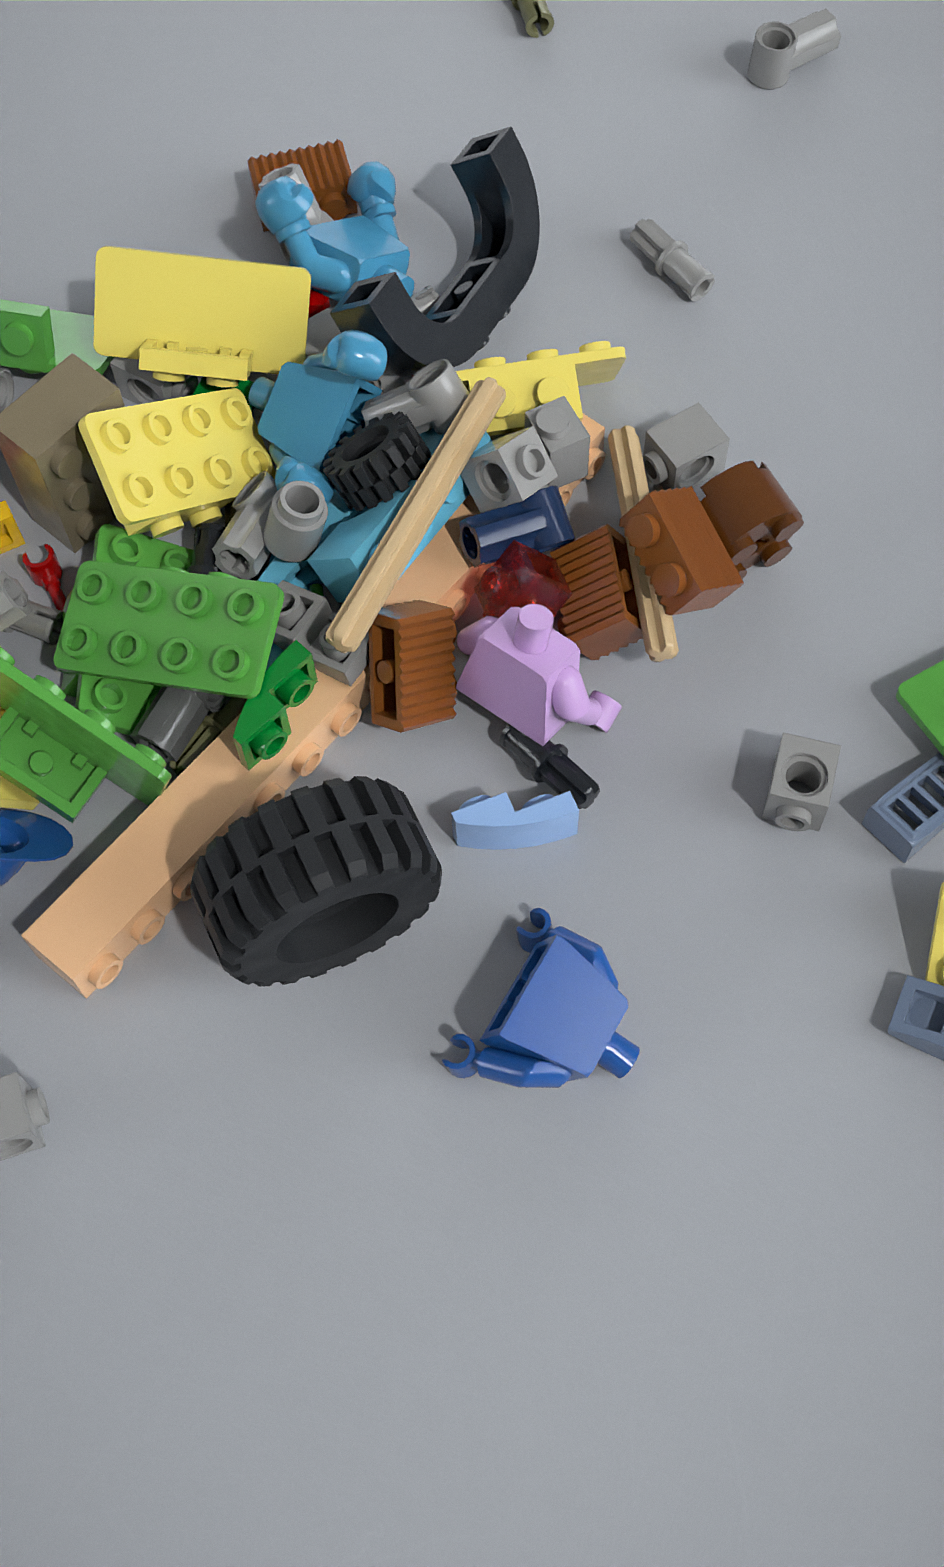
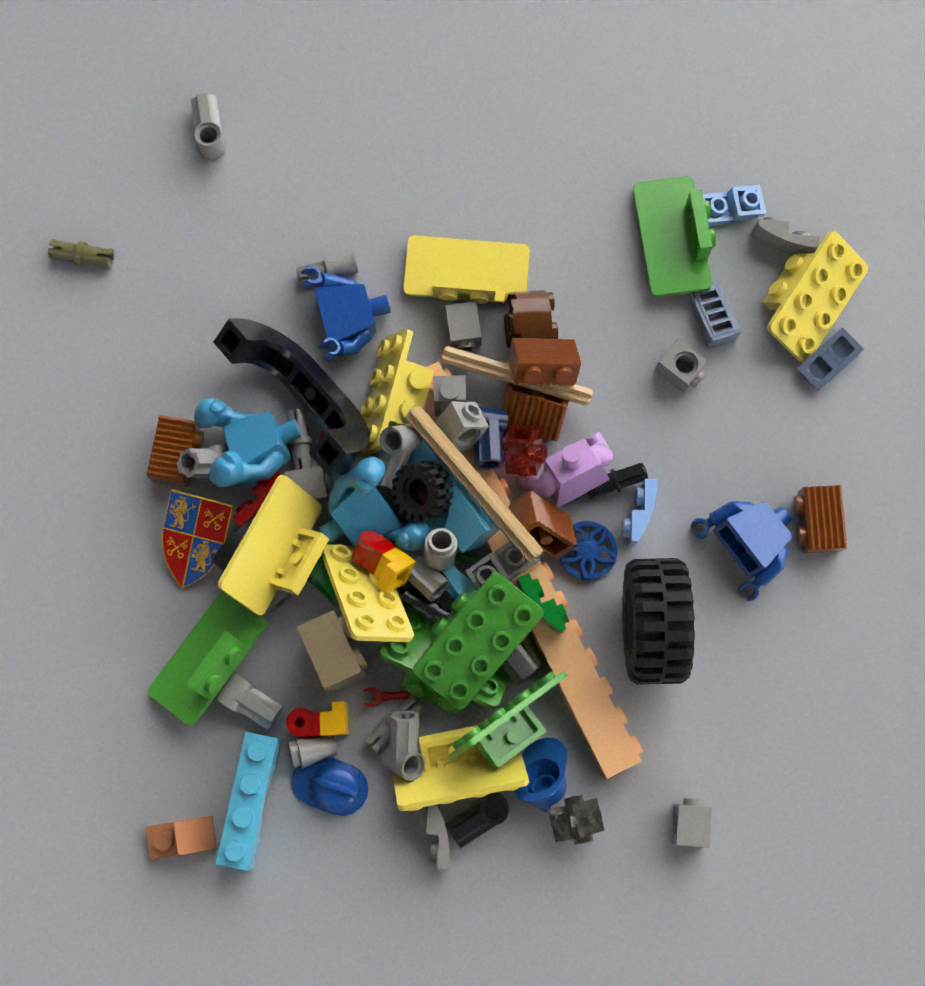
camera: 70 degrees left, 15 degrees up
(203, 228) = (193, 534): none -> shield
(244, 461) = (383, 560): none -> leg
(416, 770) = (588, 551): none -> blue wheel
(615, 295) = (344, 312): none -> blue torso
(650, 1126) = (821, 519): none -> dark orange brick
(779, 419) = (465, 269): none -> light yellow bracket

